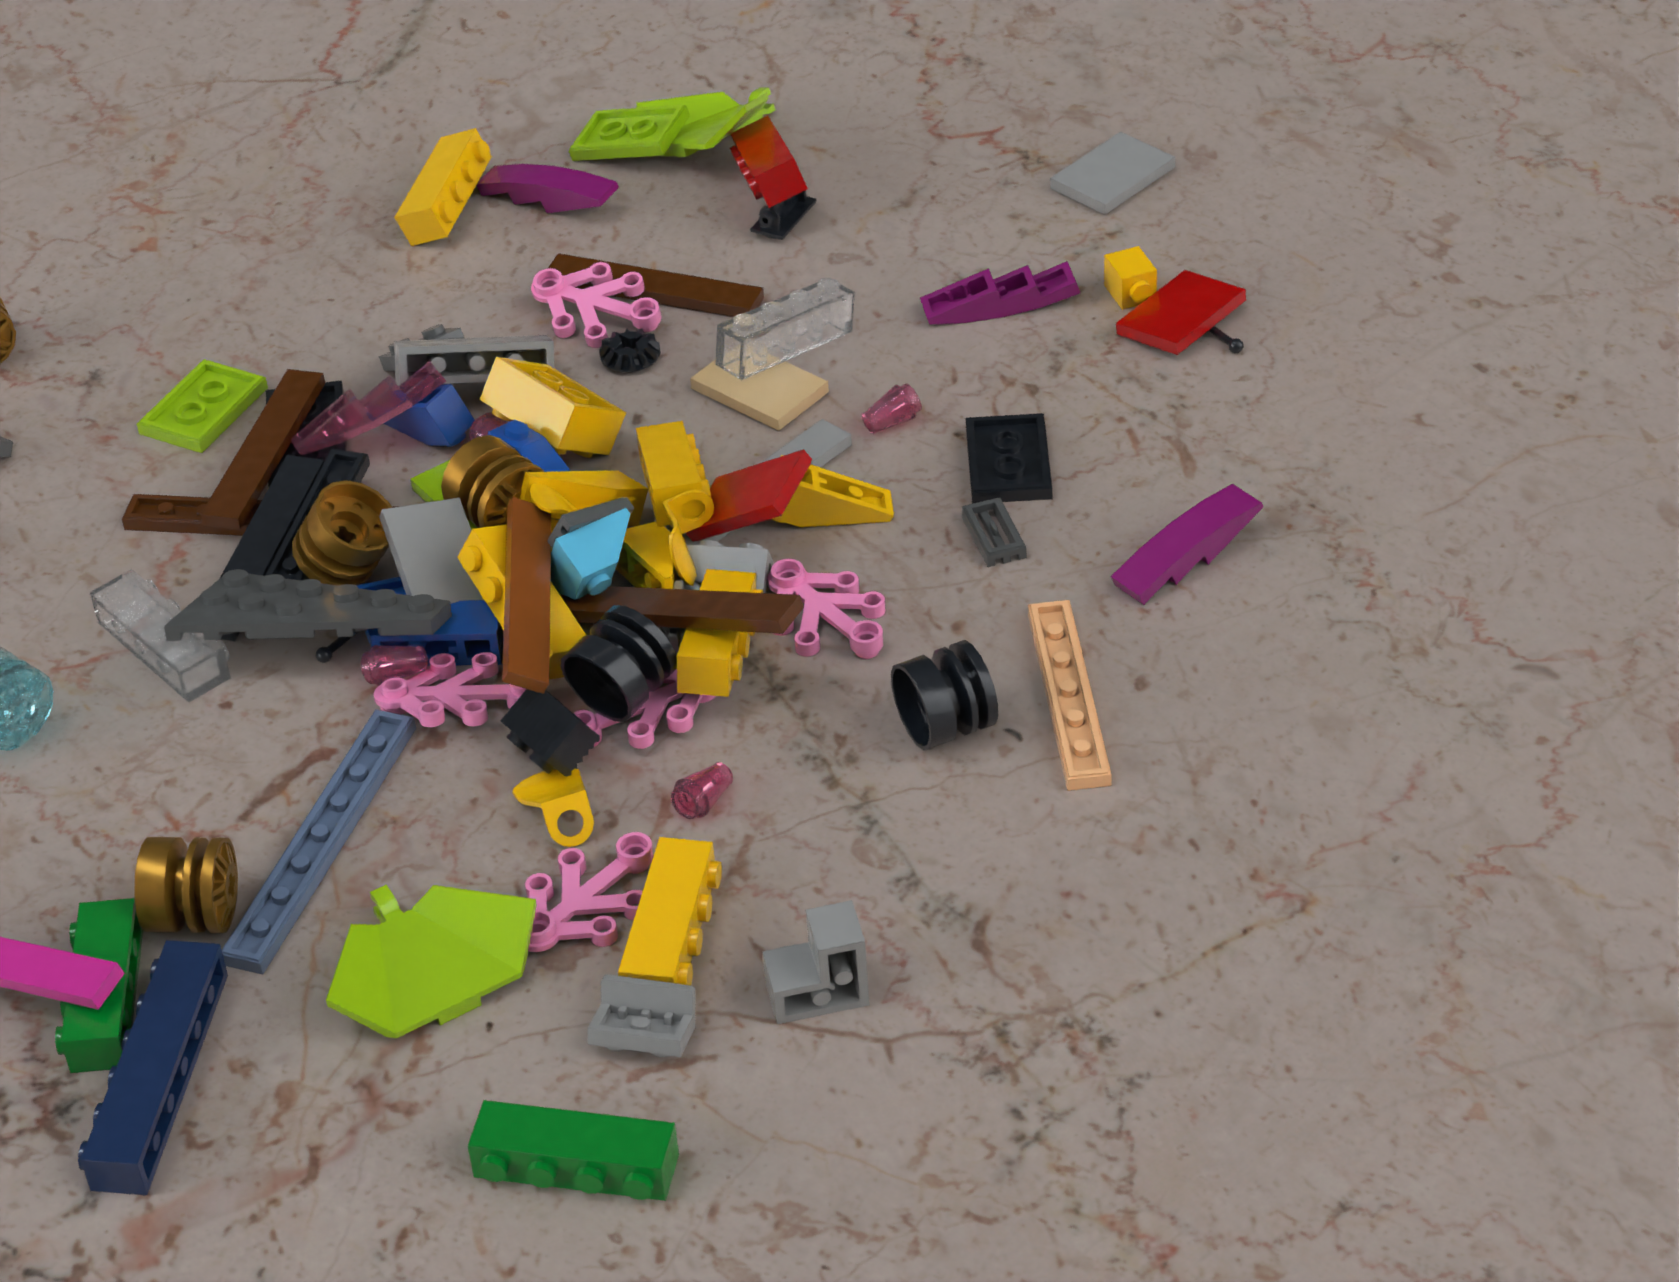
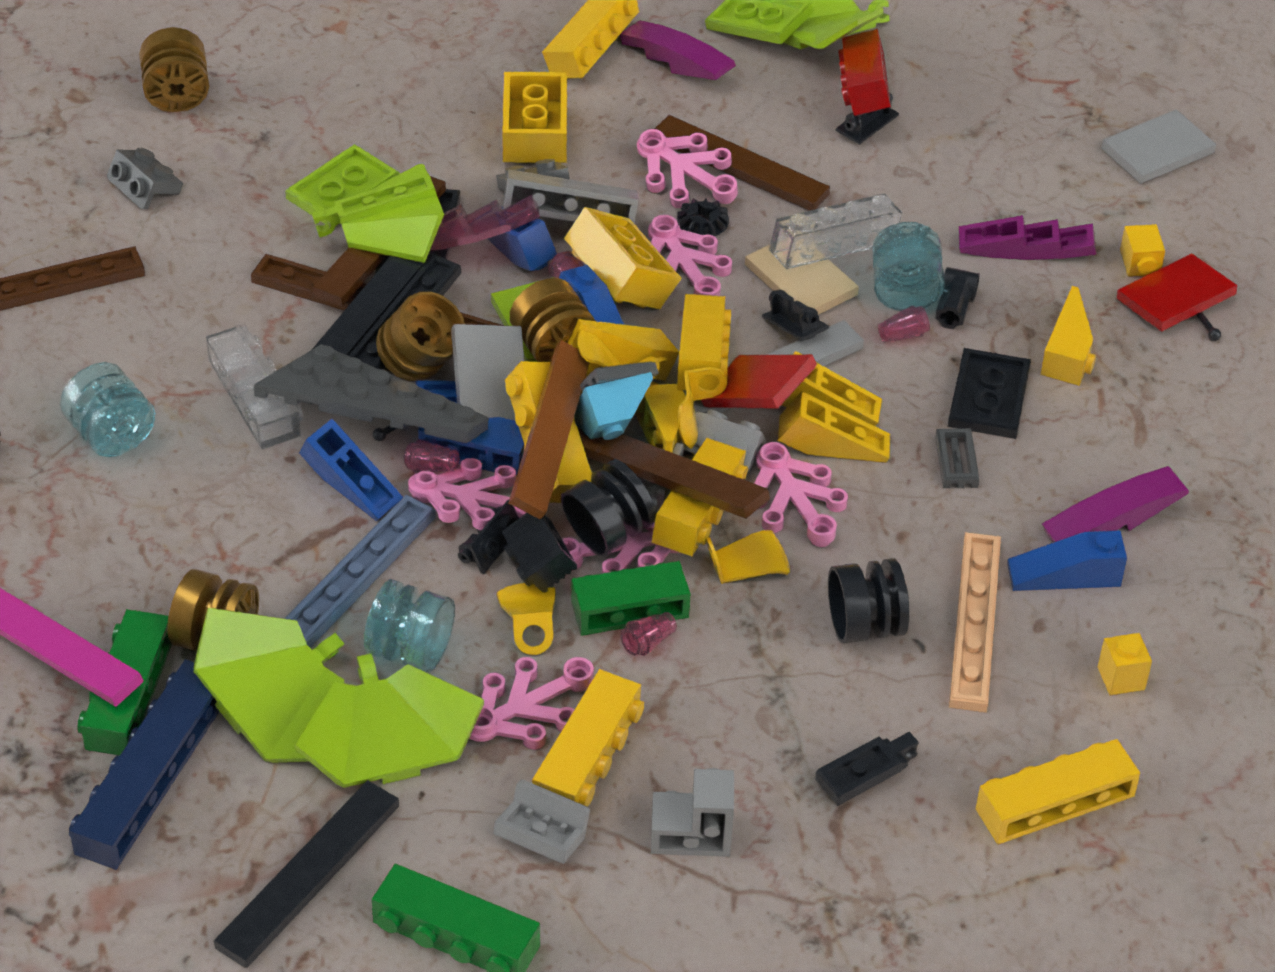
camera: 10 degrees right, 5 degrees up
(267, 939) = (264, 677): none -> lime panel
(274, 421) = (389, 219): none -> lime panel
(300, 697) = (349, 470): none -> blue slope
(378, 1144) = (306, 874): none -> black tile
(406, 285) = (534, 117): none -> yellow brick
(423, 842) = (409, 625): none -> clear light blue wheel
(489, 735) = (489, 543): none -> black hinge
(593, 373) = (666, 232): none -> bright pink plant
(653, 761) = (615, 598): none -> green brick
(765, 425) = (794, 316): none -> black hinge
(791, 686) = (749, 557): none -> yellow piece
(840, 534) = (830, 432): none -> yellow slope
(877, 345) = (907, 266): none -> clear light blue wheel
(939, 367) = (958, 292): none -> black piece
(995, 871) = (866, 767): none -> black hinge
(1082, 387) = (1070, 344): none -> yellow slope
(1161, 606) = (1072, 563): none -> blue slope
(1218, 845) = (1057, 790): none -> yellow brick
(1250, 696) = (1124, 664): none -> yellow brick

